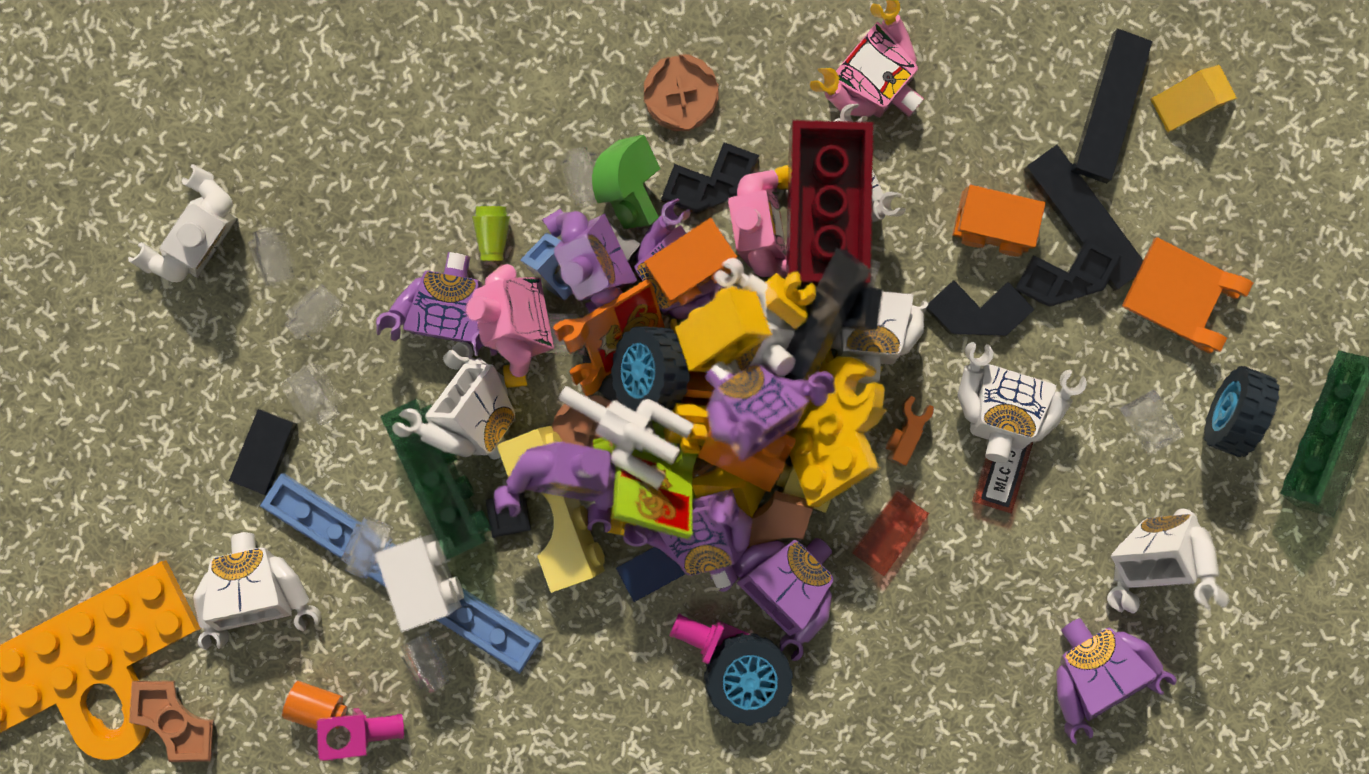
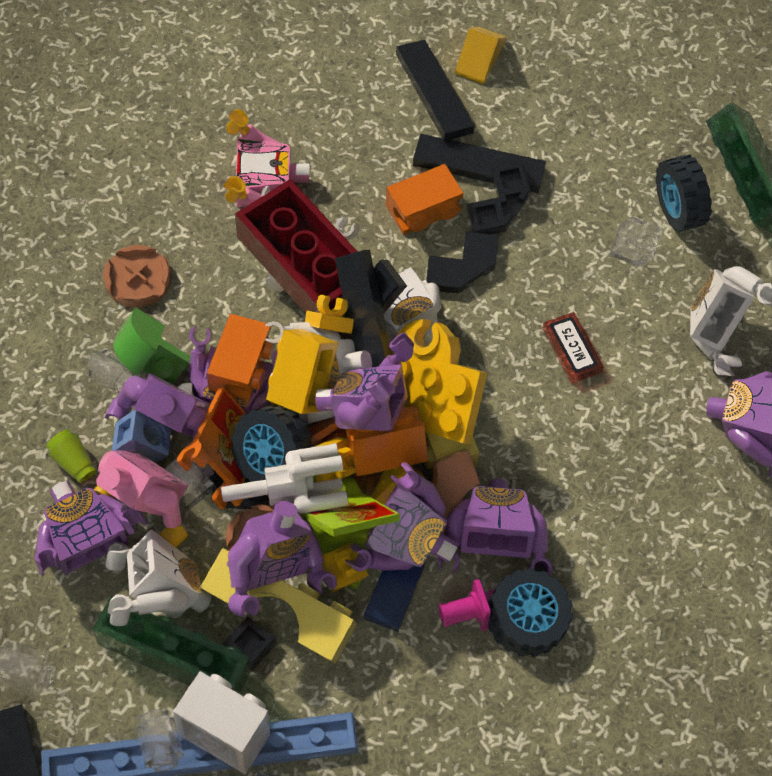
camera: 45 degrees left, 25 degrees down
(701, 192) = (217, 304): black tile -> none
(759, 223) = (260, 302): bright pink torso -> none
(890, 533) = (536, 443): clear red tile -> none
(903, 441) = (488, 363): dark orange plate -> none
(1010, 405) = (536, 299): white torso -> none
(1181, 293) = (582, 160): orange flag -> none

